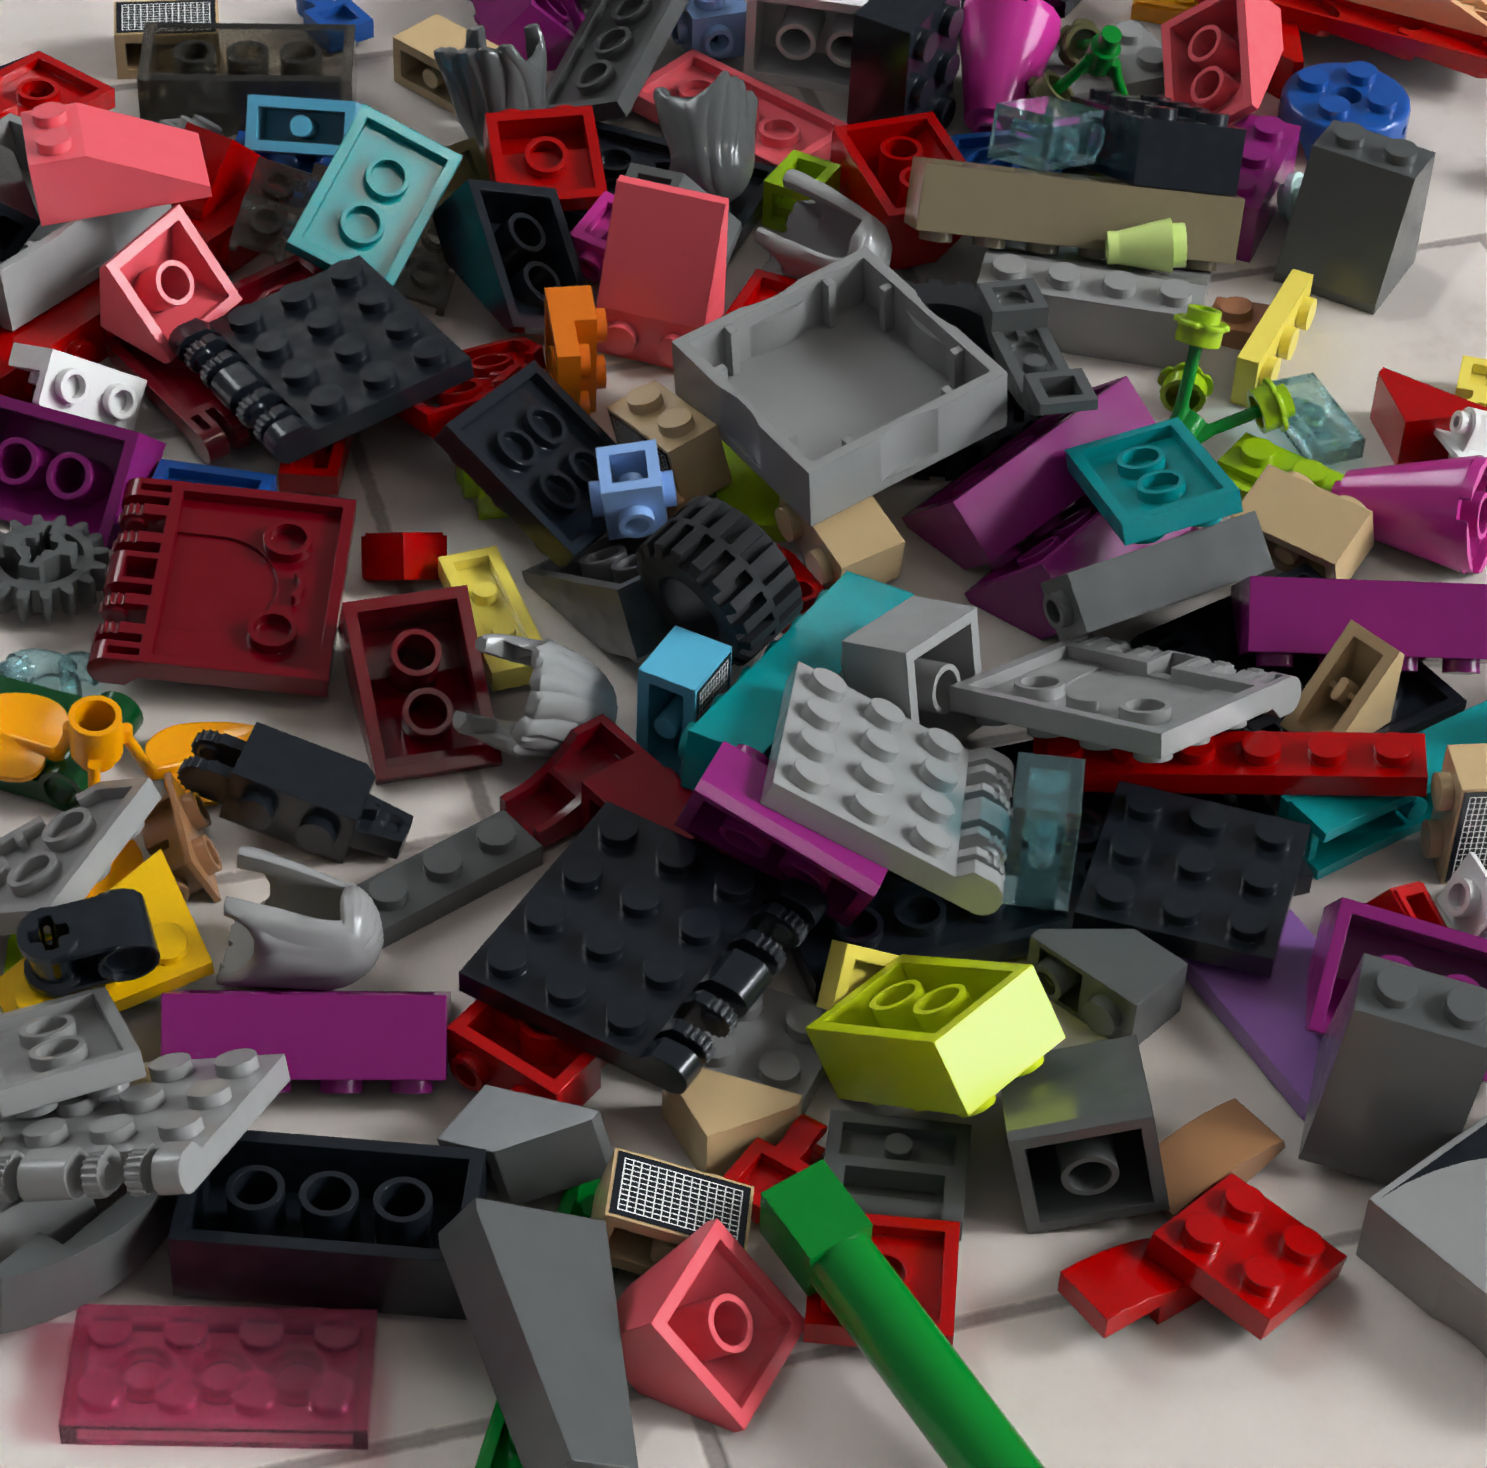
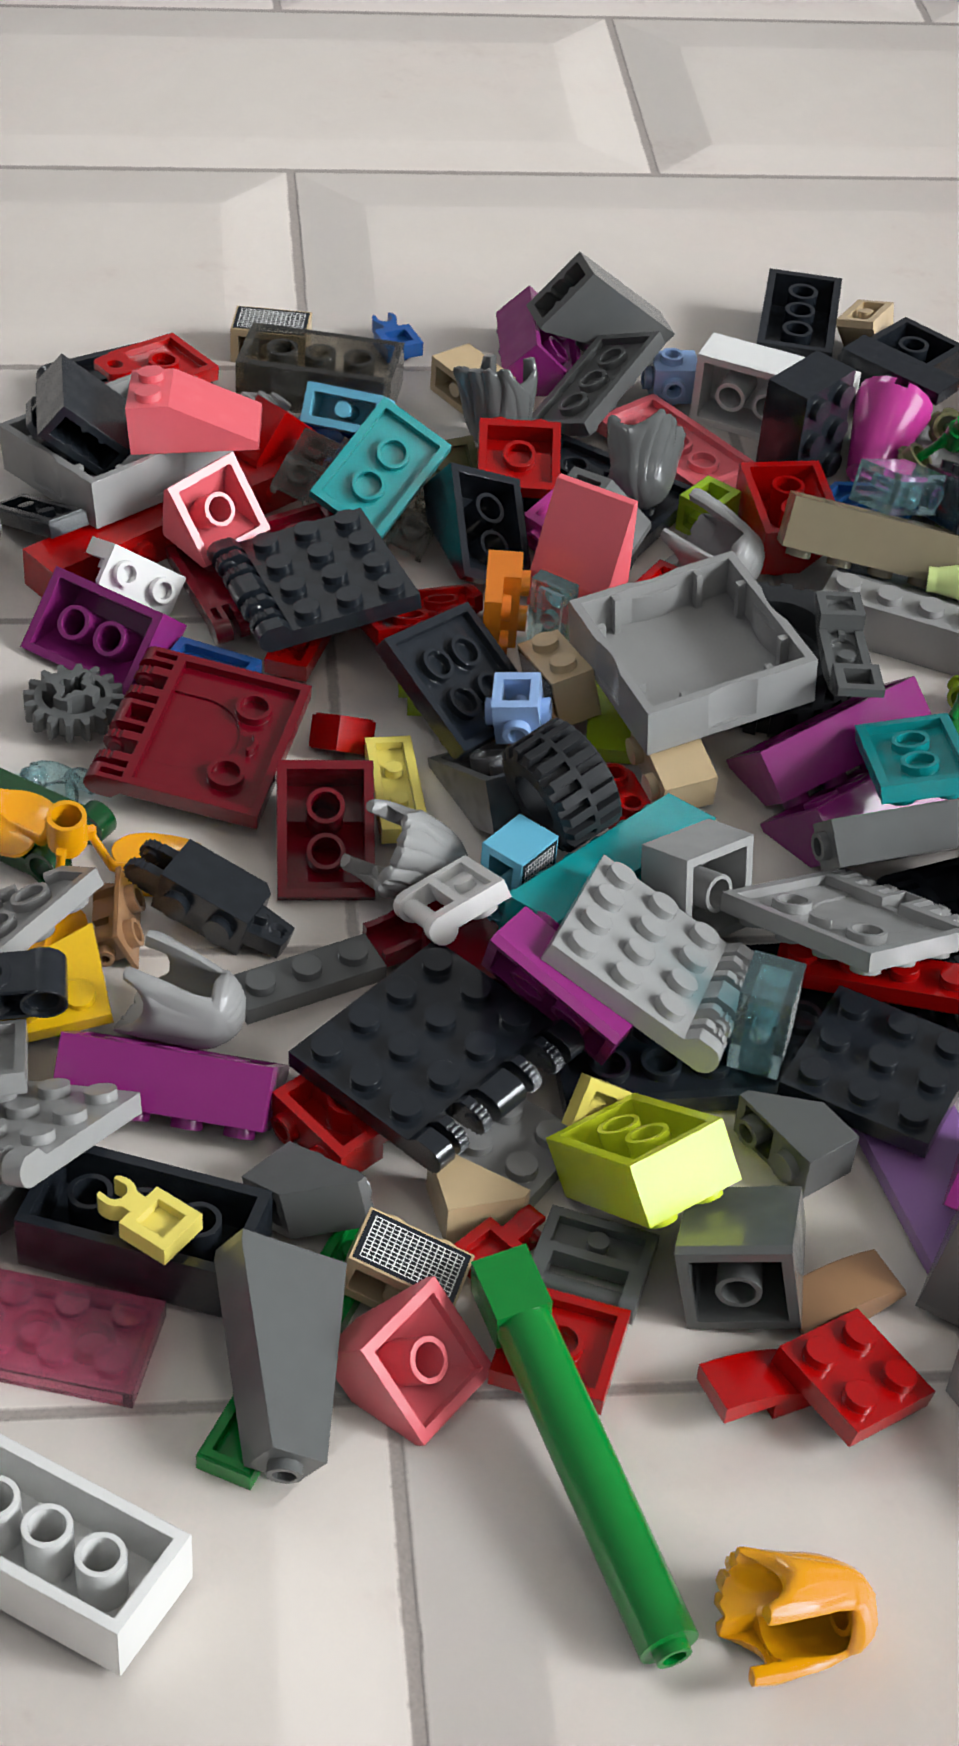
camera: 10 degrees right, 0 degrees up
(349, 1213) = (154, 1223): none -> light yellow plate
(623, 728) = (464, 890): none -> white plate
(639, 350) = (550, 604): none -> clear light blue plate

